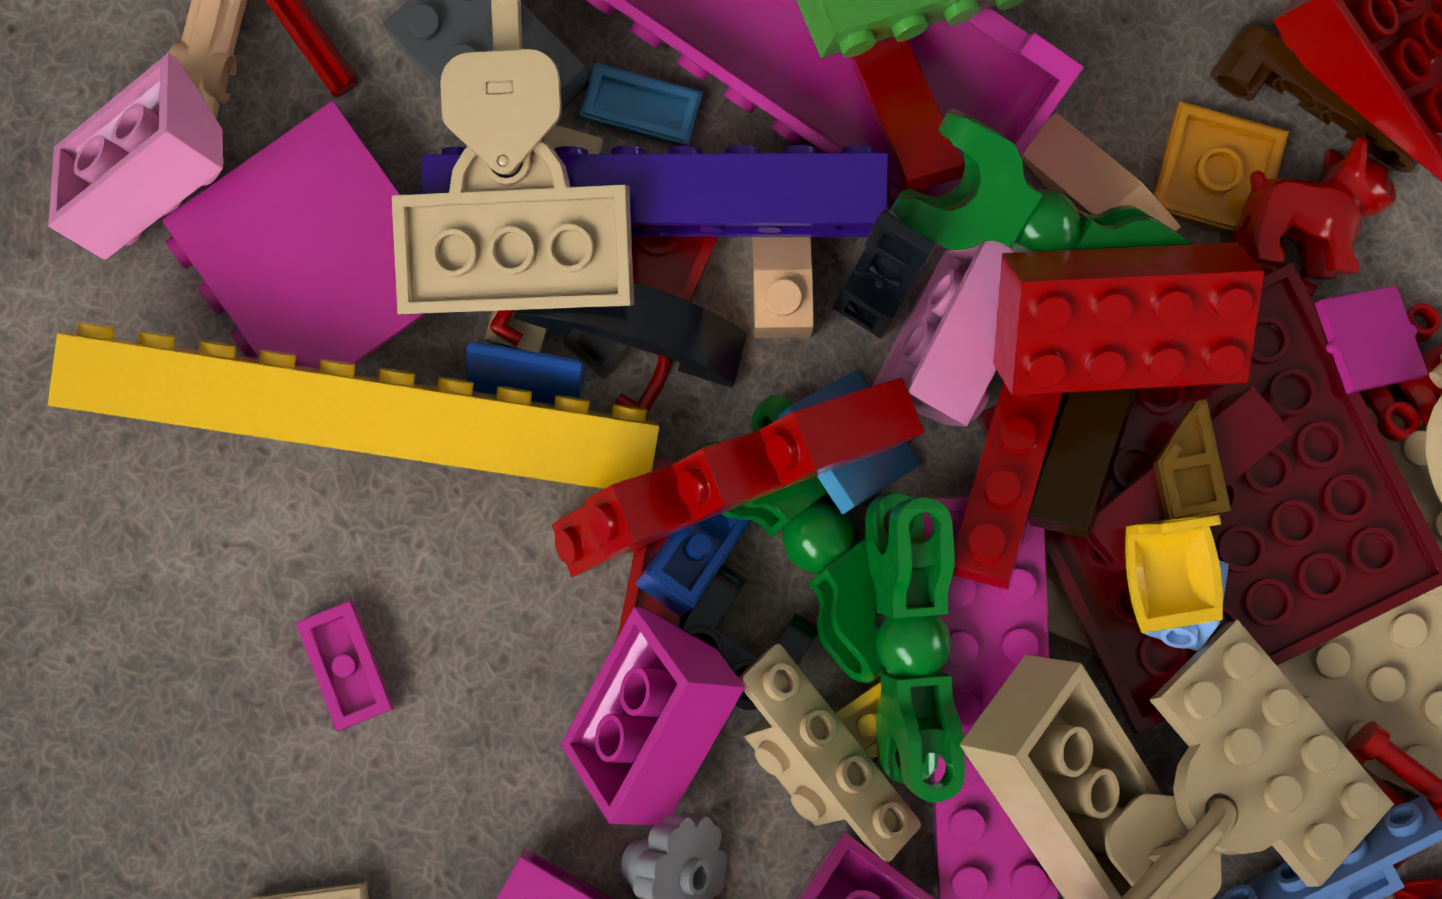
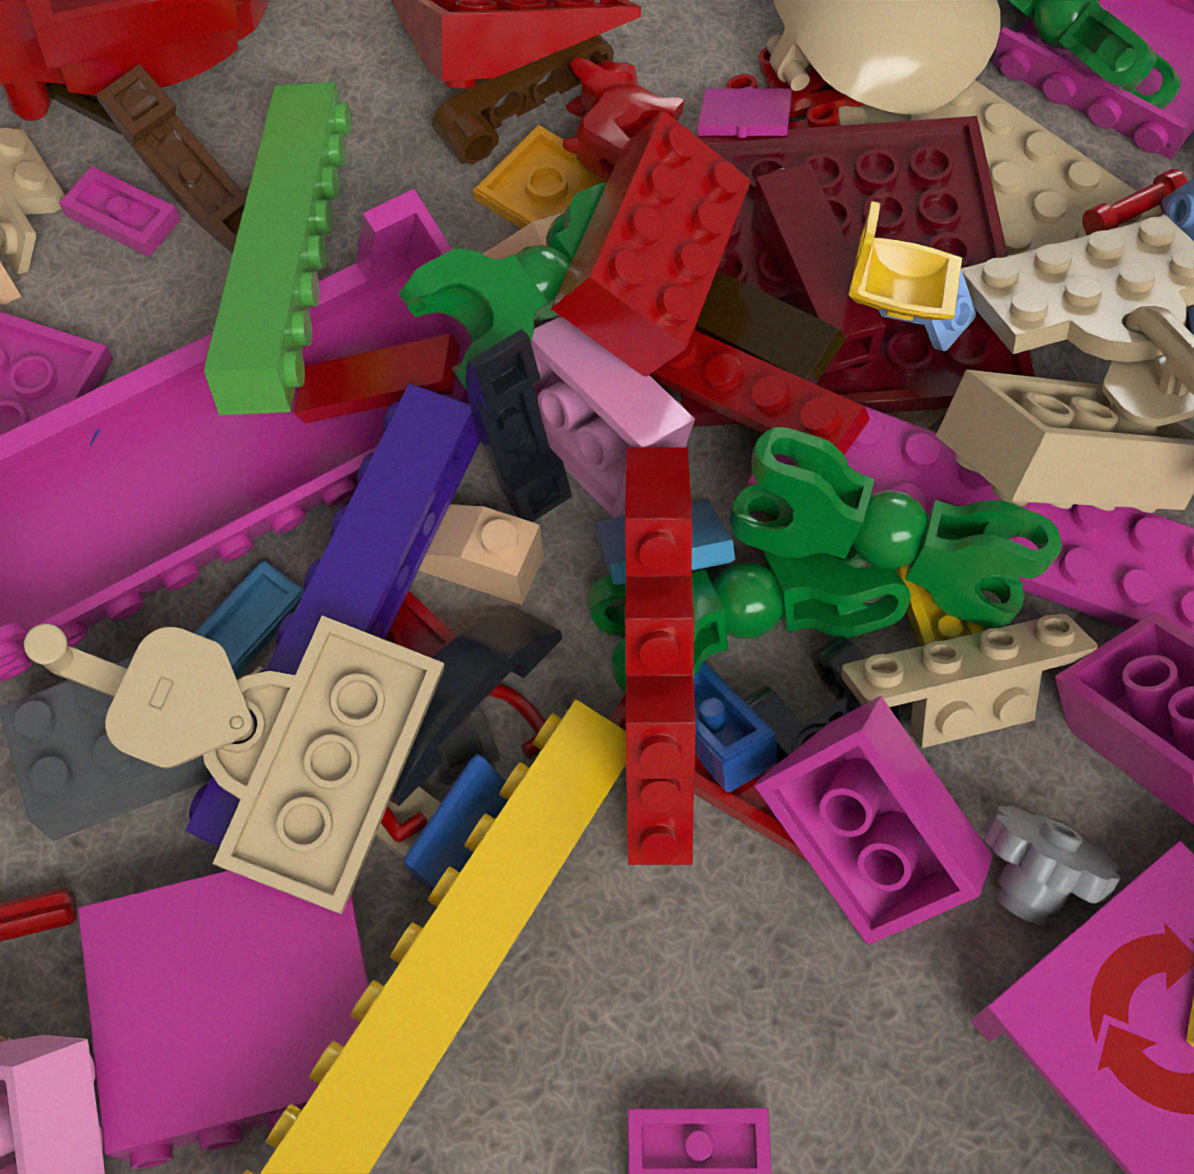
camera: 65 degrees left, 20 degrees down
(1190, 468) = (811, 240): pearl gold tile -> none

